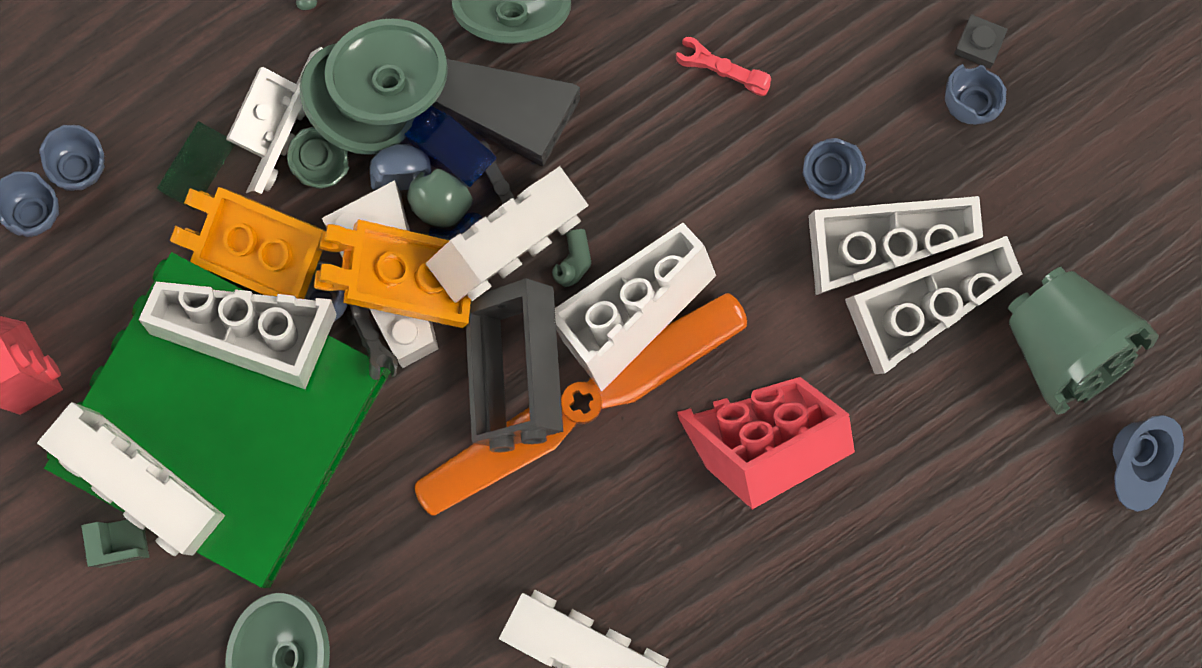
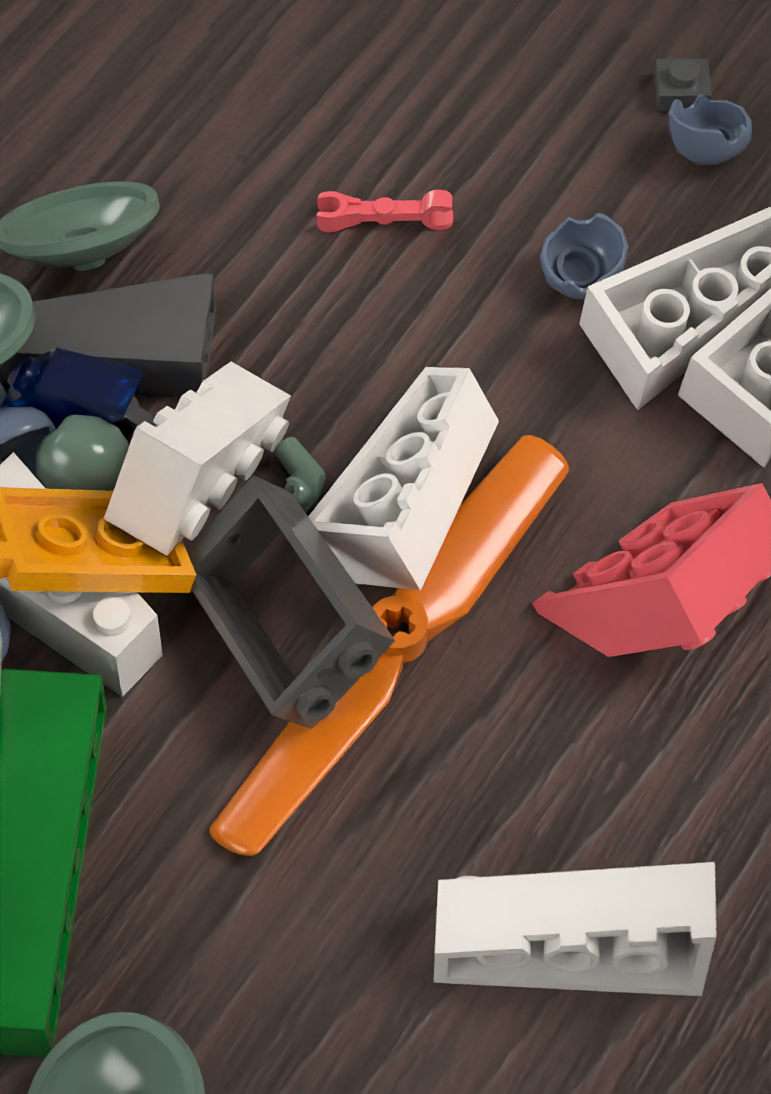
camera: 25 degrees left, 25 degrees down
(378, 354) = (85, 663): dark grey piece -> none

